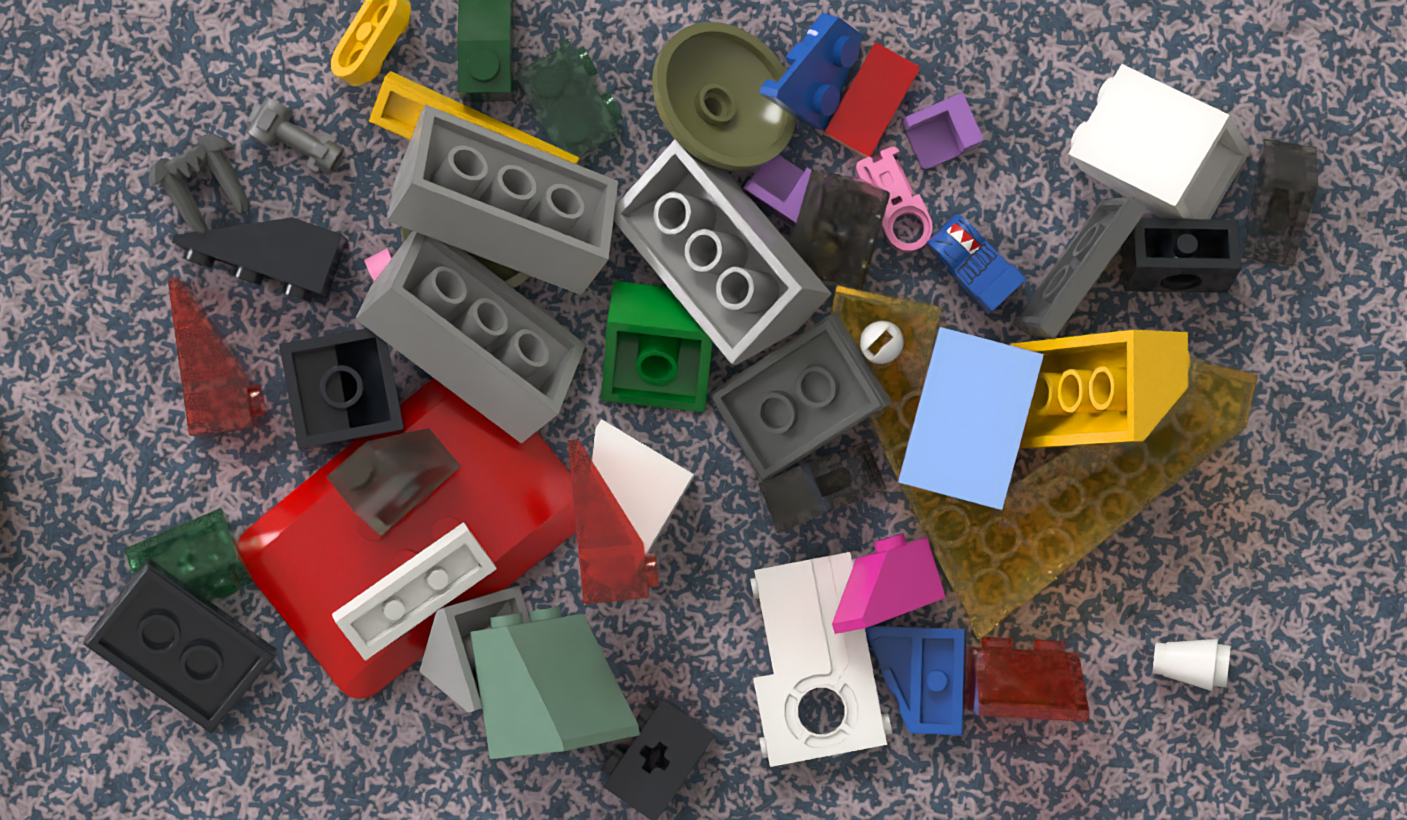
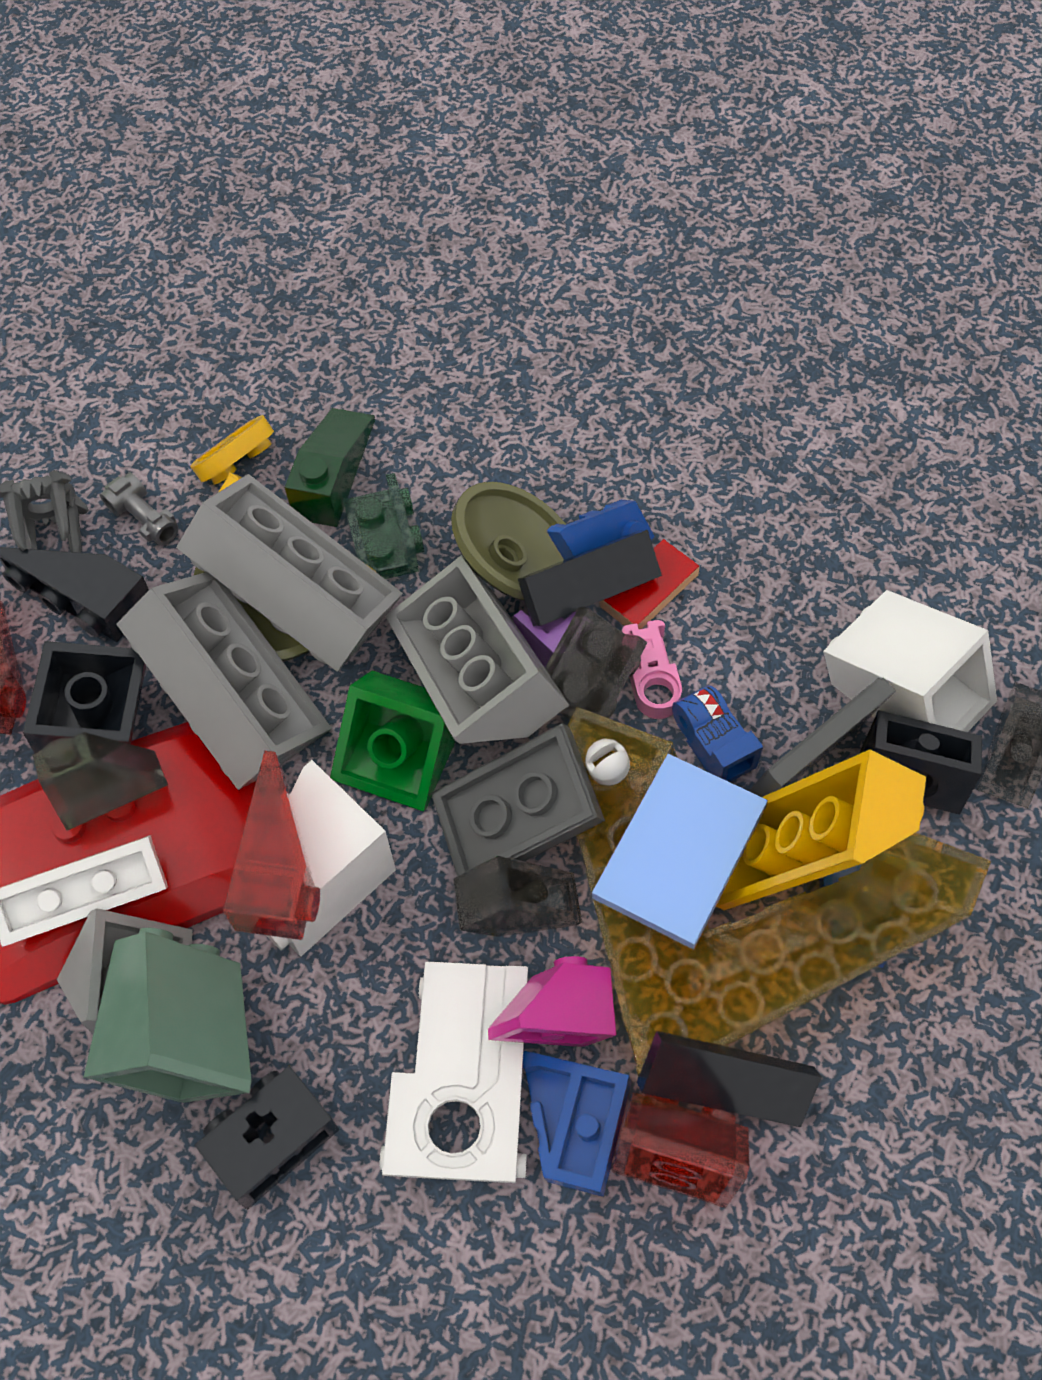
camera: 15 degrees right, 25 degrees down
(814, 127) = (589, 577): none -> black tile
(942, 131) = (708, 617): medium lavender panel -> none
(1053, 614) = (728, 1079): none -> black tile
(1193, 662) = (874, 1179): white cone -> none

